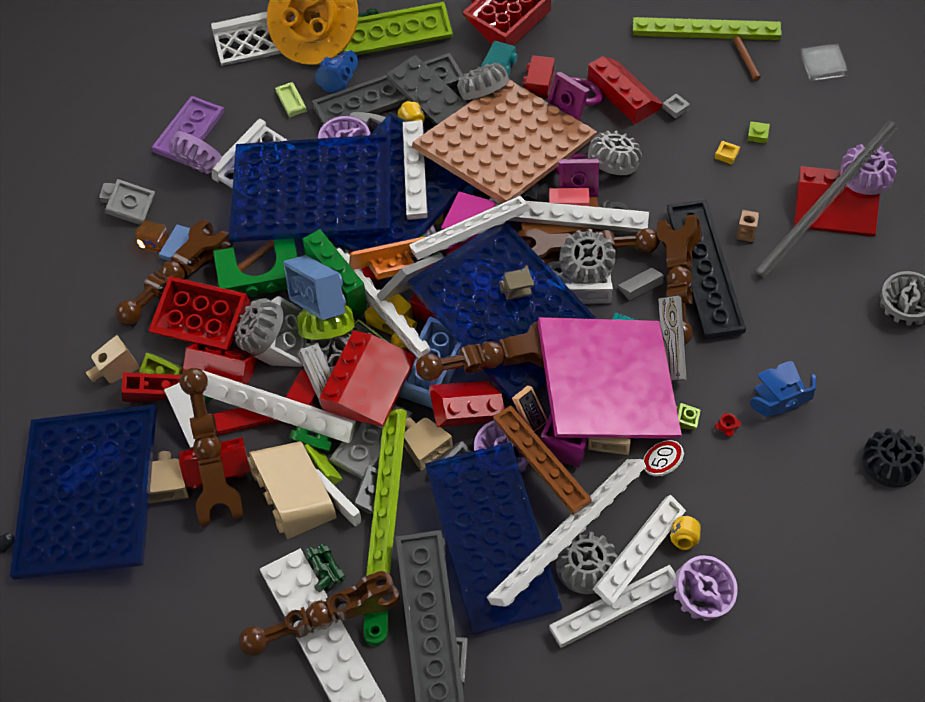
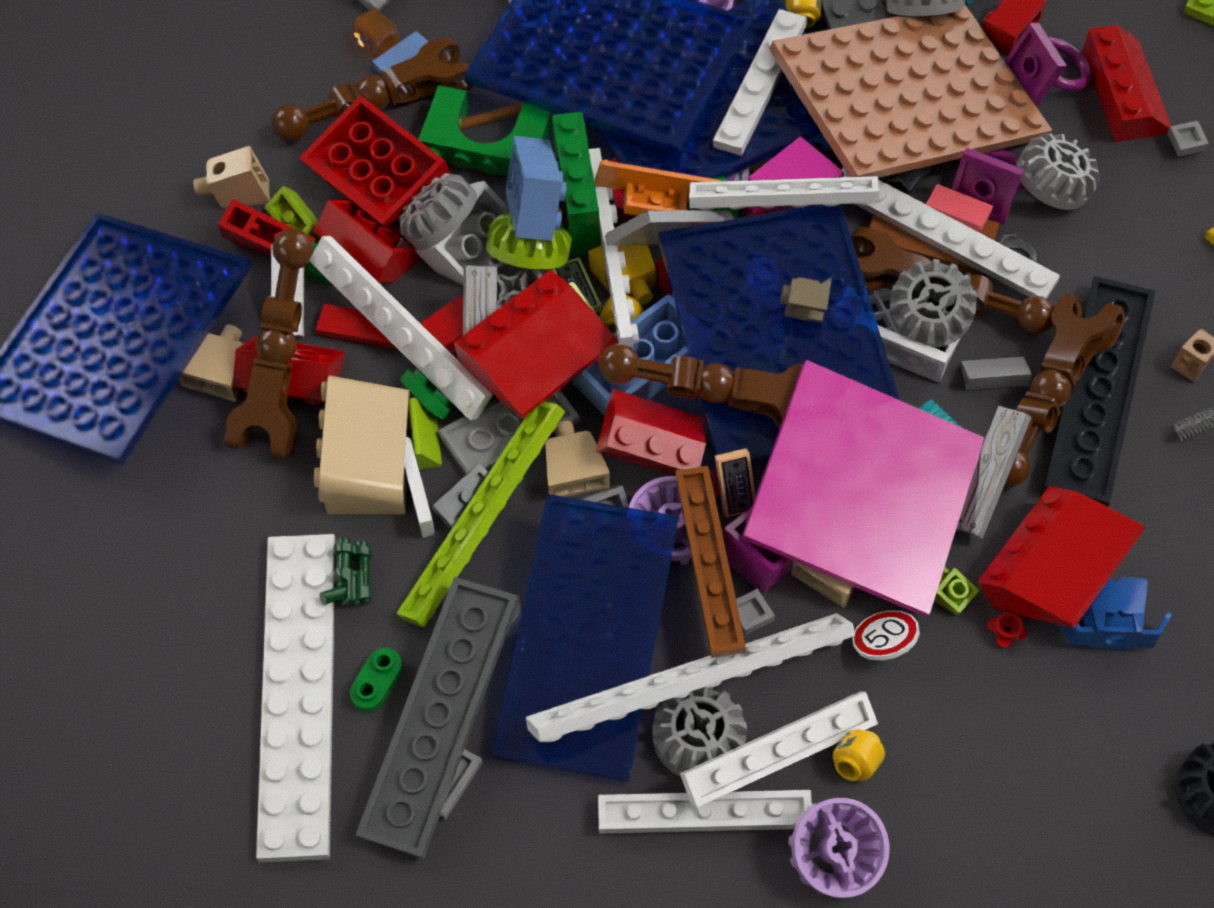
camera: 25 degrees right, 5 degrees up
(319, 615) = (301, 636): reddish brown piece -> none
(582, 477) = (753, 611): none -> light grey plate
(737, 370) = (1059, 558): none -> red slope

